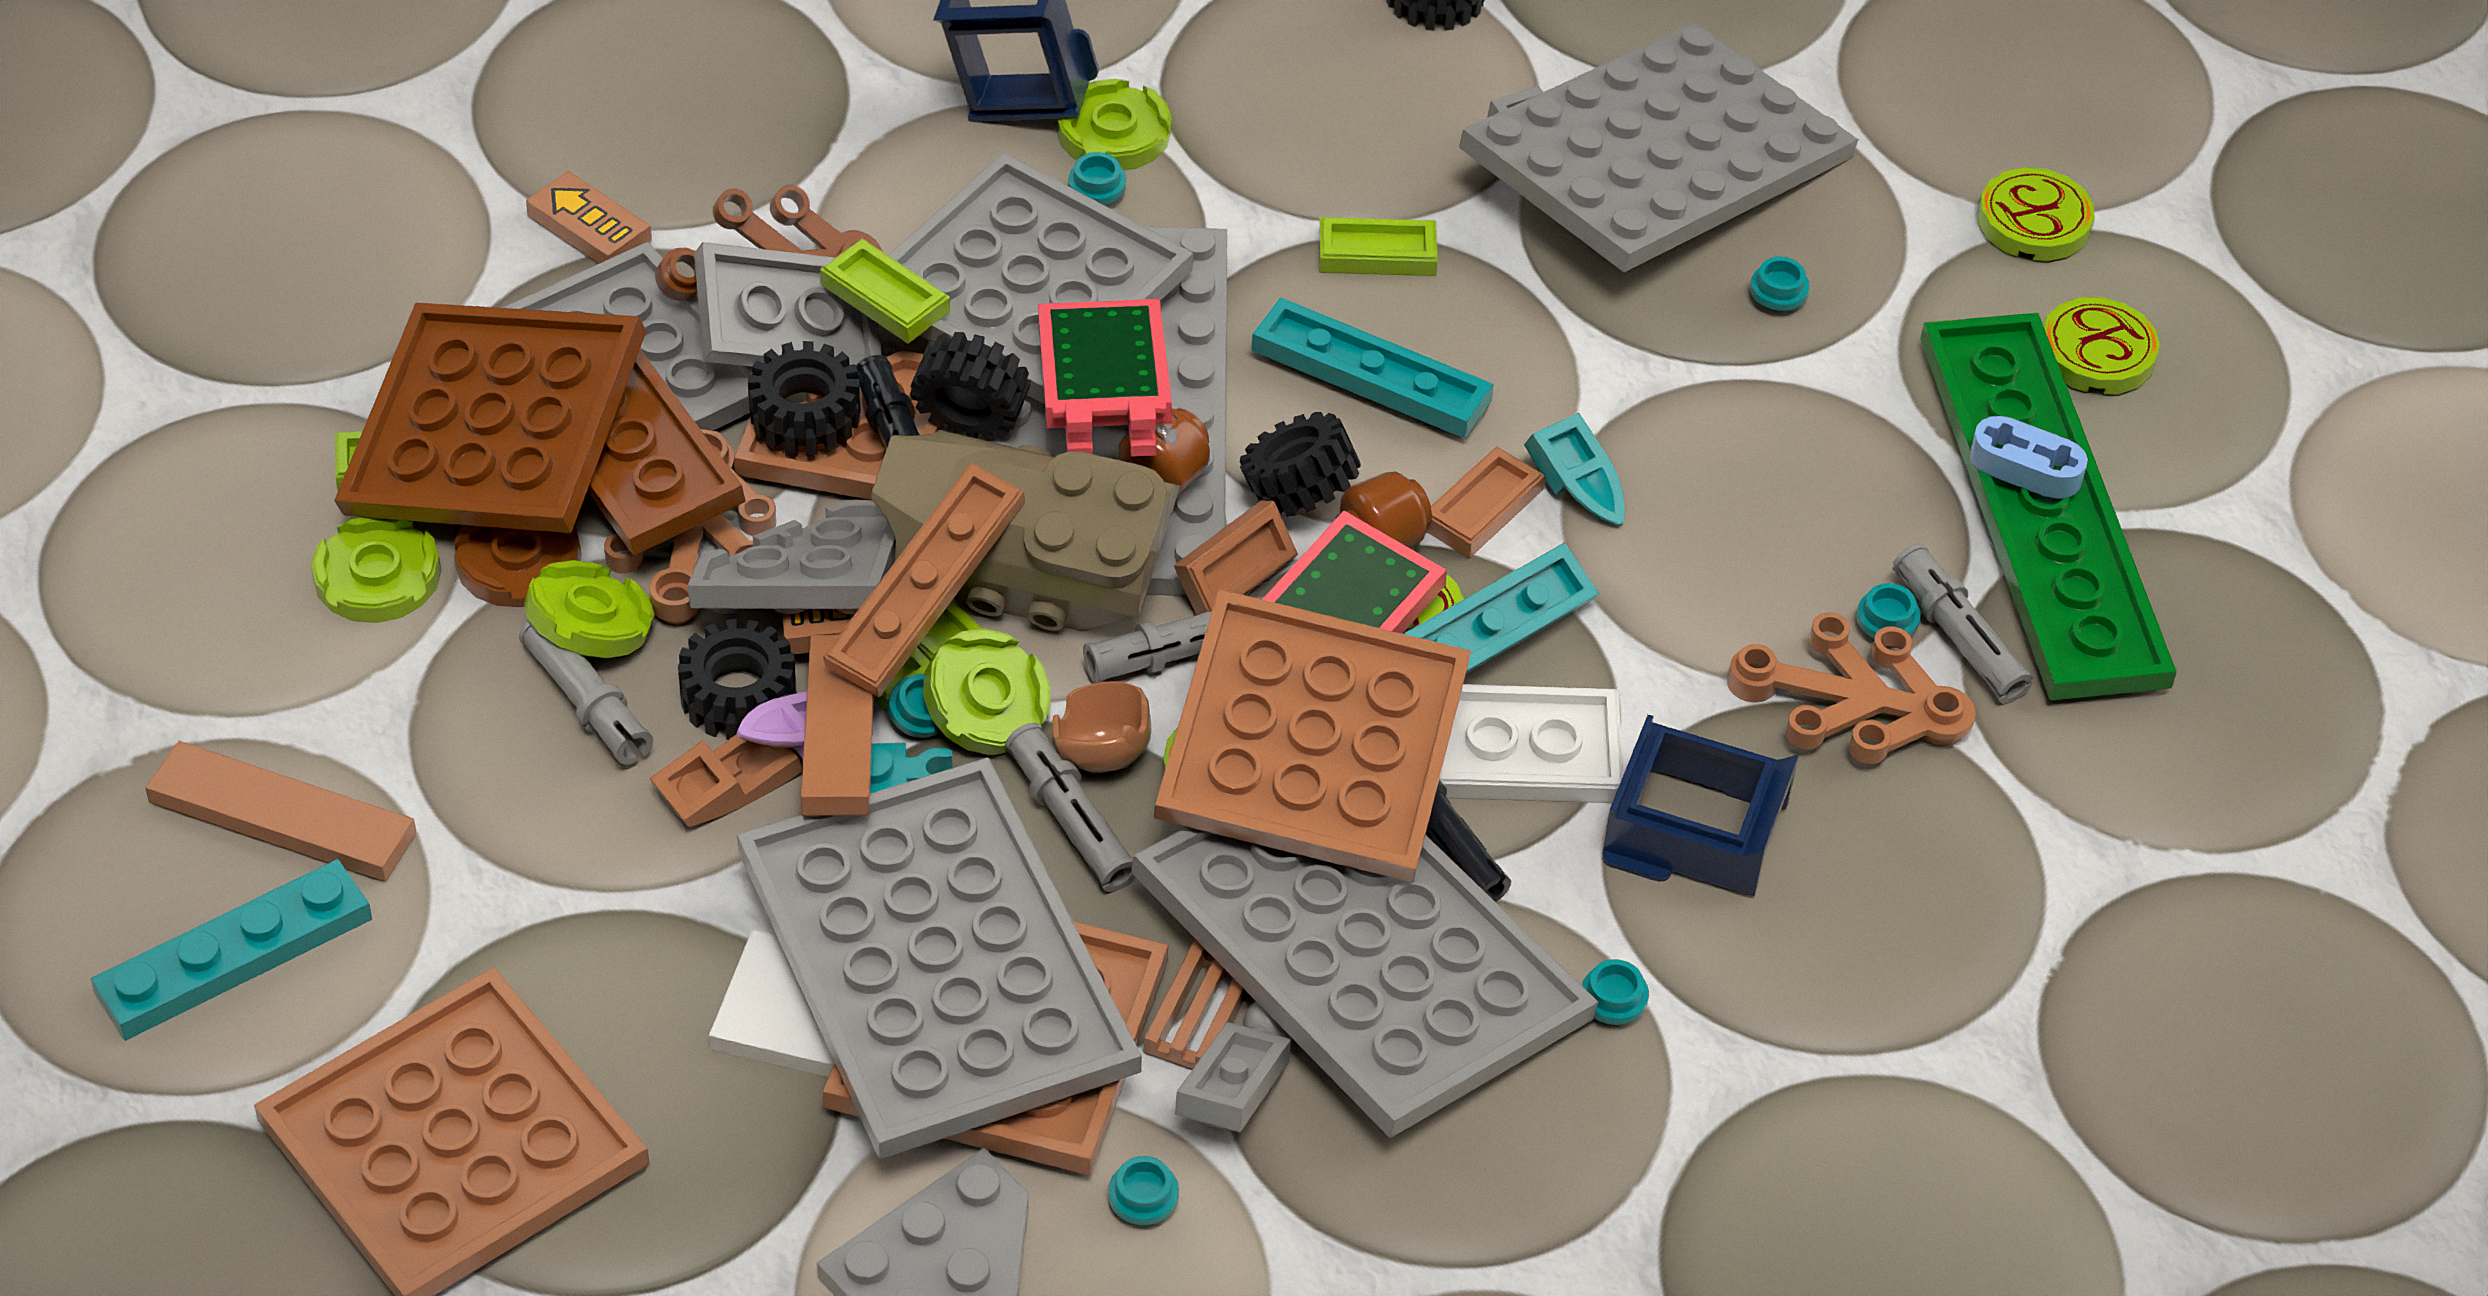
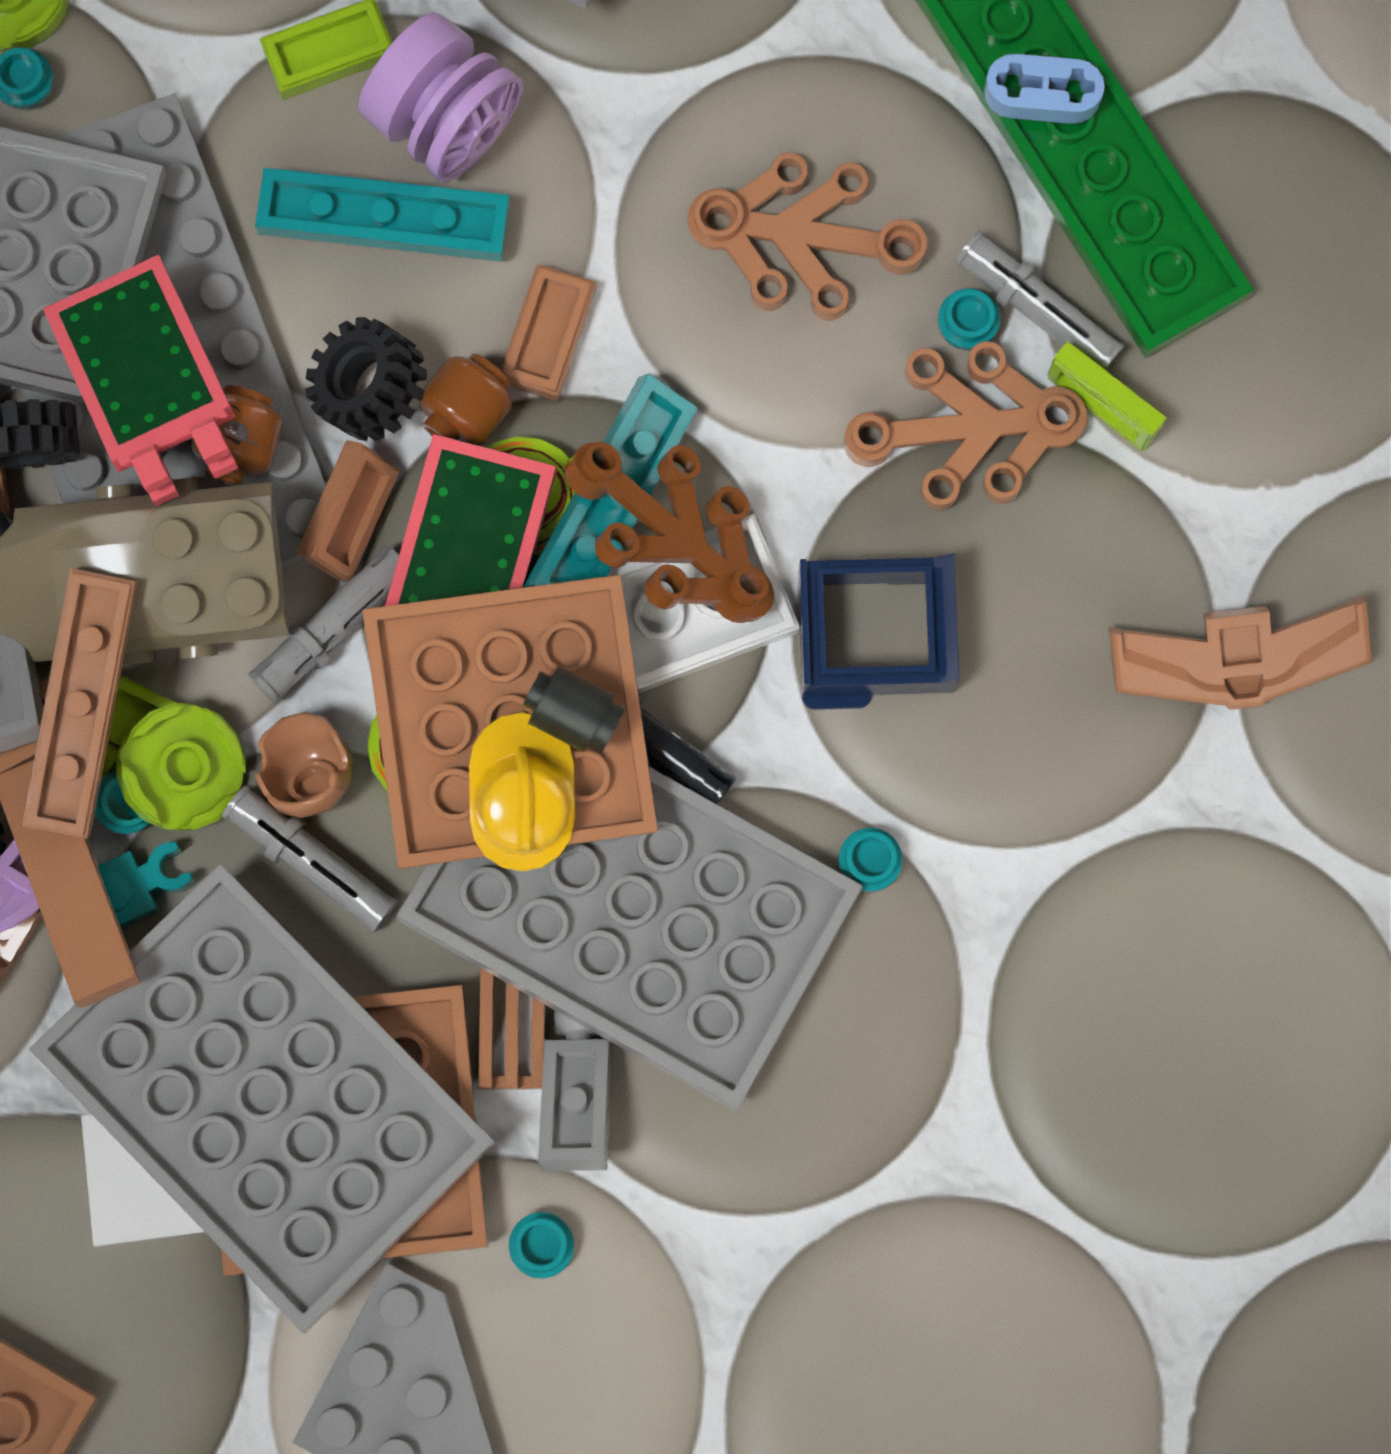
camera: 20 degrees left, 30 degrees up
(1299, 786) = (521, 794): none -> yellow piece
(1380, 724) = (573, 710): none -> pearl dark grey brick
(1463, 288) = (439, 96): none -> lavender wheel
(1576, 720) = (731, 582): none -> dark orange plant
(1577, 463) = (625, 261): teal plate -> none
(1690, 472) = (796, 232): none -> nougat plant
(2001, 708) = (1106, 396): none -> lime tile
(2056, 950) = (1241, 657): none -> nougat plate

